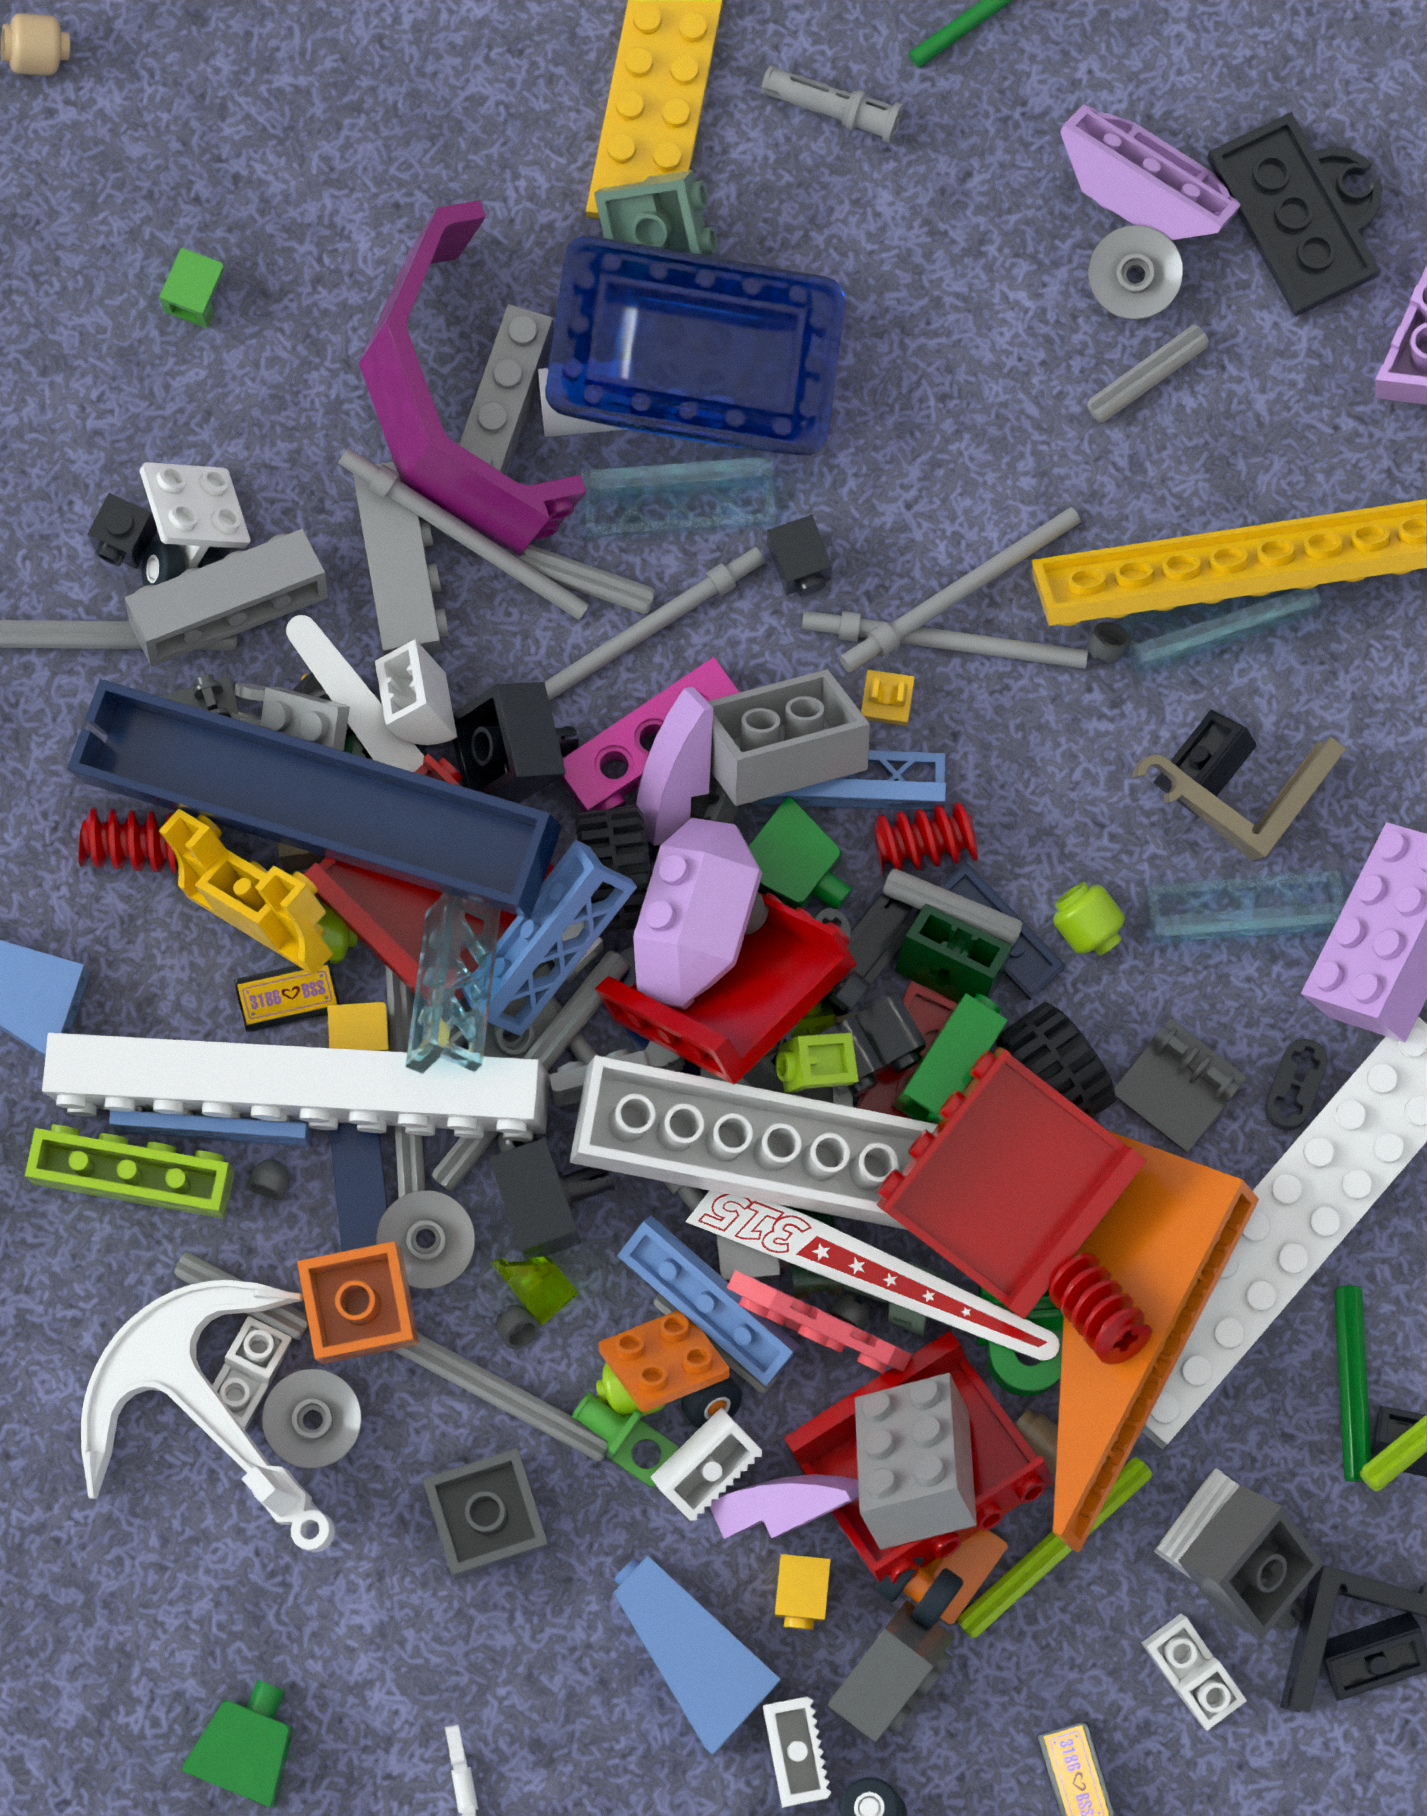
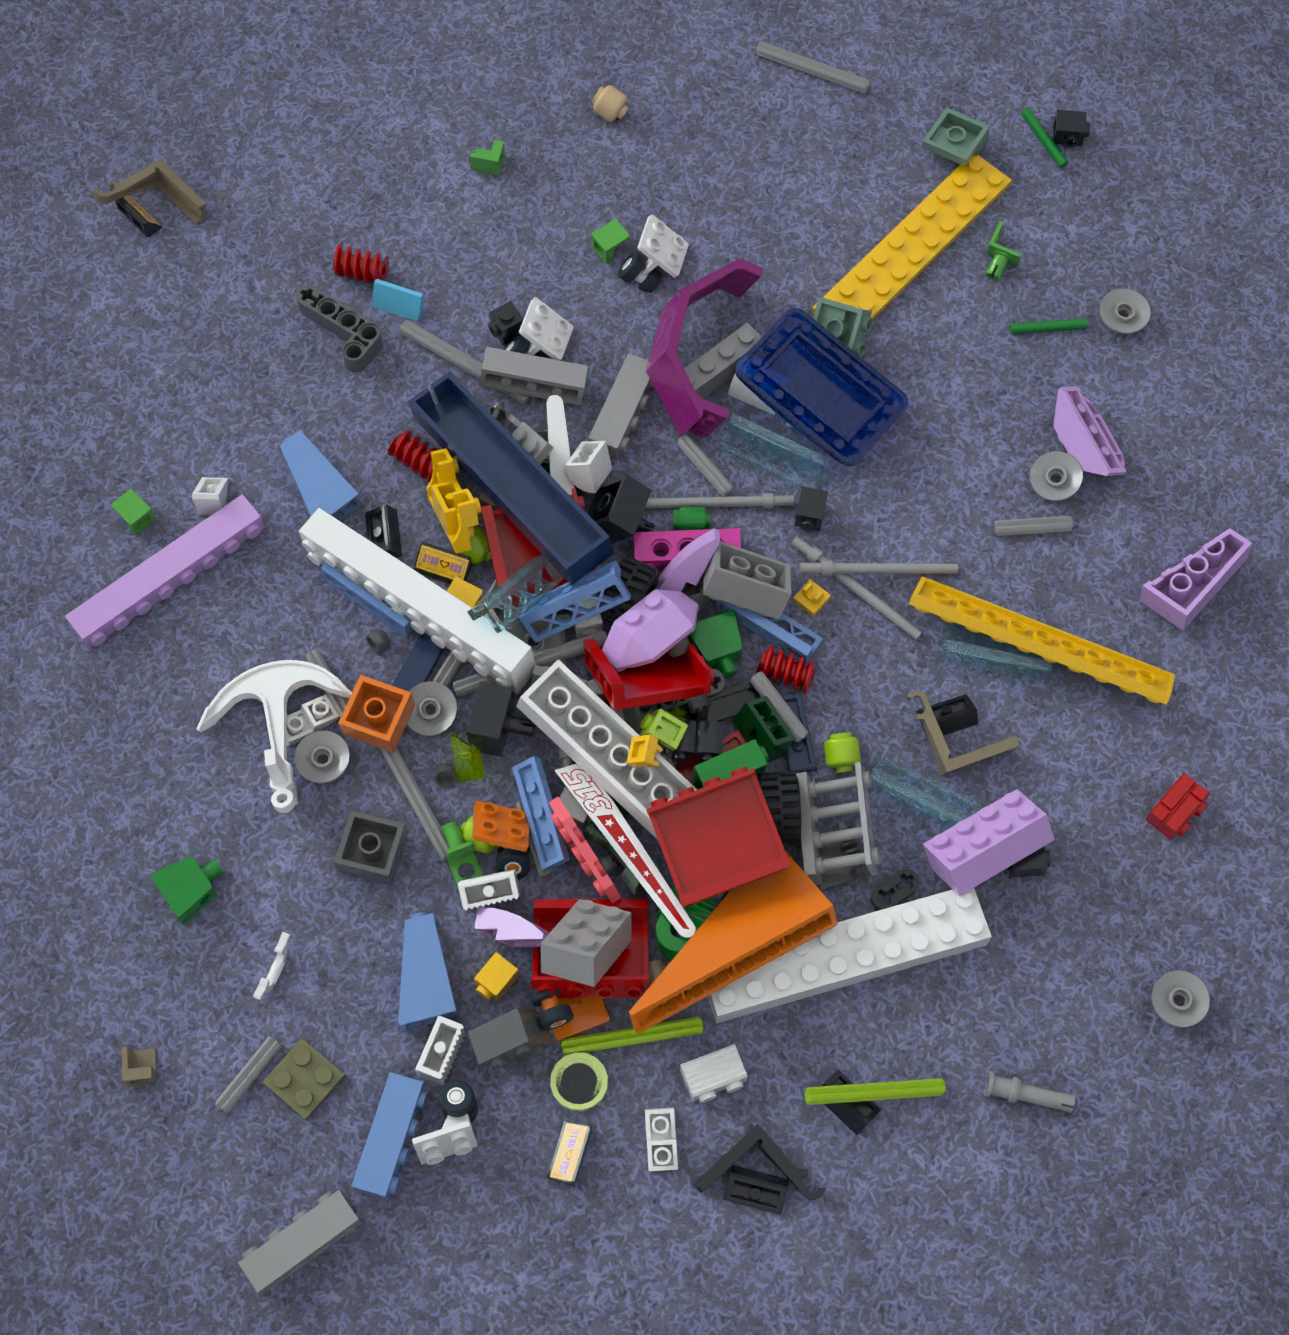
camera: 30 degrees right, 10 degrees down
(129, 1172) = (316, 597): lime brick -> none
(157, 997) = (384, 529): none -> black slope
(290, 256) = (662, 248): none -> white plate
(384, 482) = (638, 365): light grey bar -> none
(626, 685) = (691, 519): none -> green brick
(815, 1119) = (643, 751): none -> yellow tile
(852, 108) = (966, 332): light grey pin -> none
(1022, 1664) = (579, 1081): none -> tile
(1099, 1309) = (721, 922): red piece -> none
(1113, 634) = (934, 633): dark grey hinge -> none
(1137, 1085) = (811, 814): none -> light grey fence
(1252, 1564) = (720, 1098): dark grey brick -> none
(1301, 210) = (1156, 494): black plate -> none
(1352, 1380) = (833, 1046): green axle -> none

